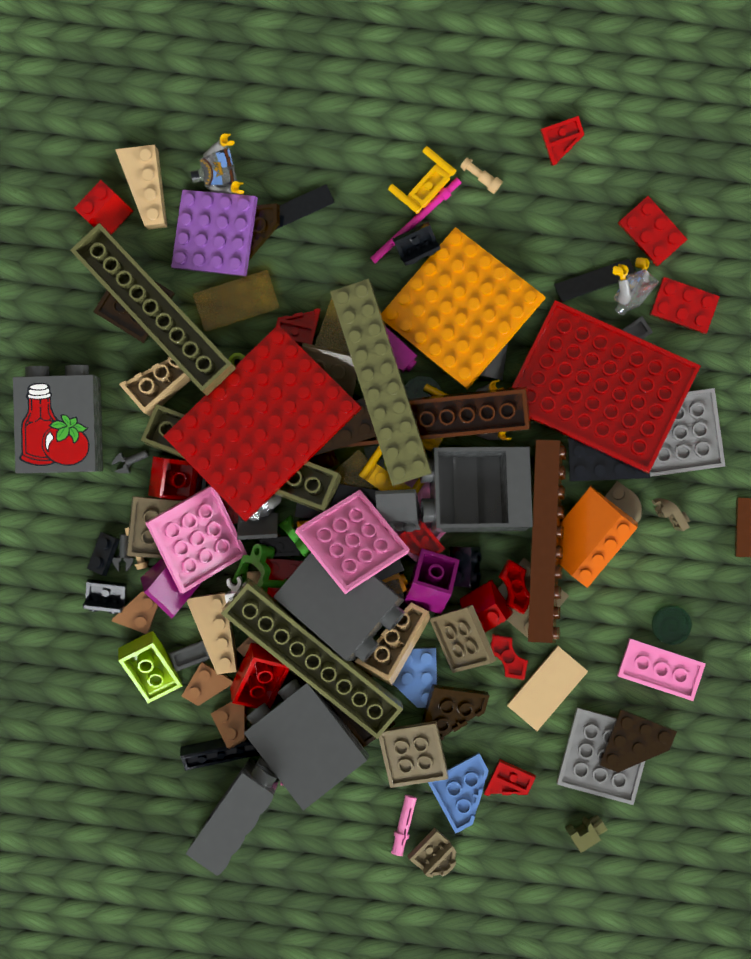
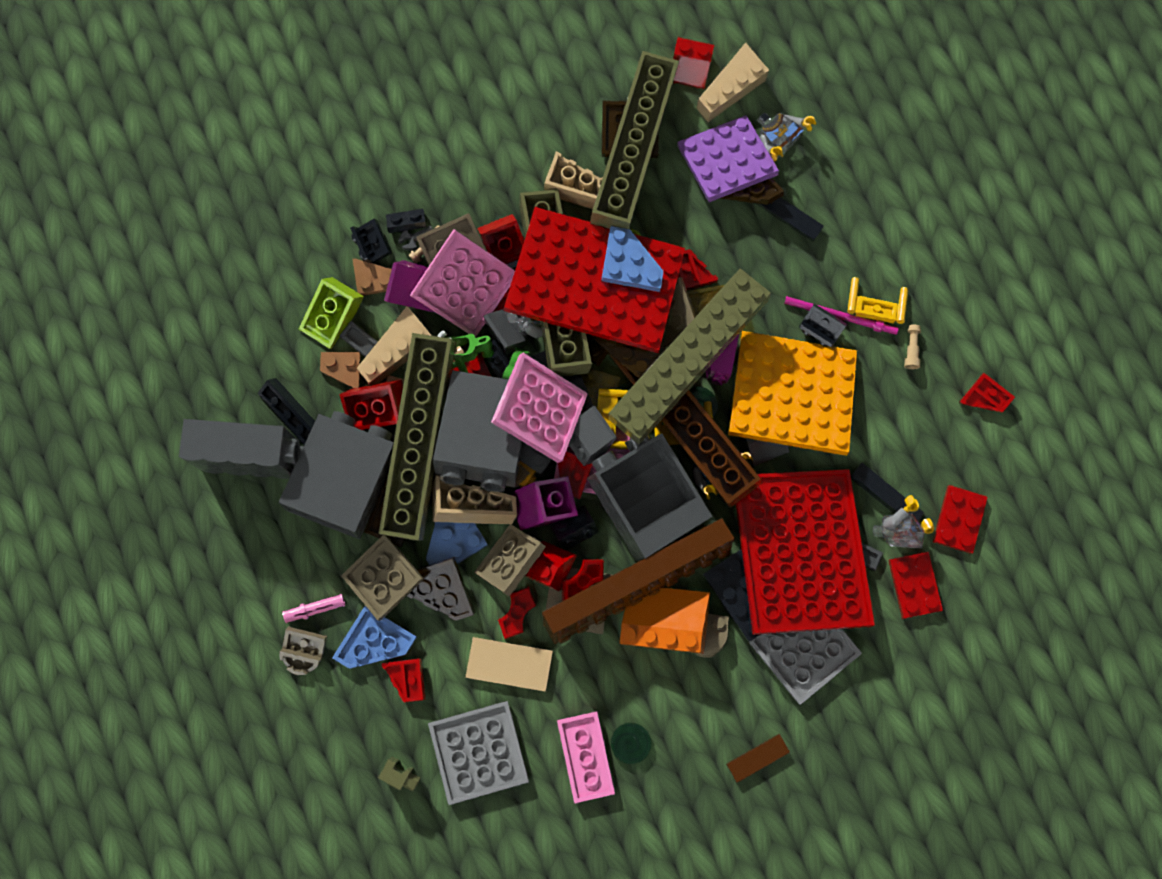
camera: 55 degrees right, 10 degrees down
(57, 421) = (495, 121): brick -> none
(128, 461) = (495, 198): dark grey bar -> none
(231, 723) = (320, 402): medium nougat wing -> none
(236, 300) = (682, 209): clear yellow plate -> none
(265, 383) = (629, 262): none -> medium blue plate
(634, 741) = (507, 770): dark brown plate -> none
(669, 509) = (732, 674): dark tan slope -> none

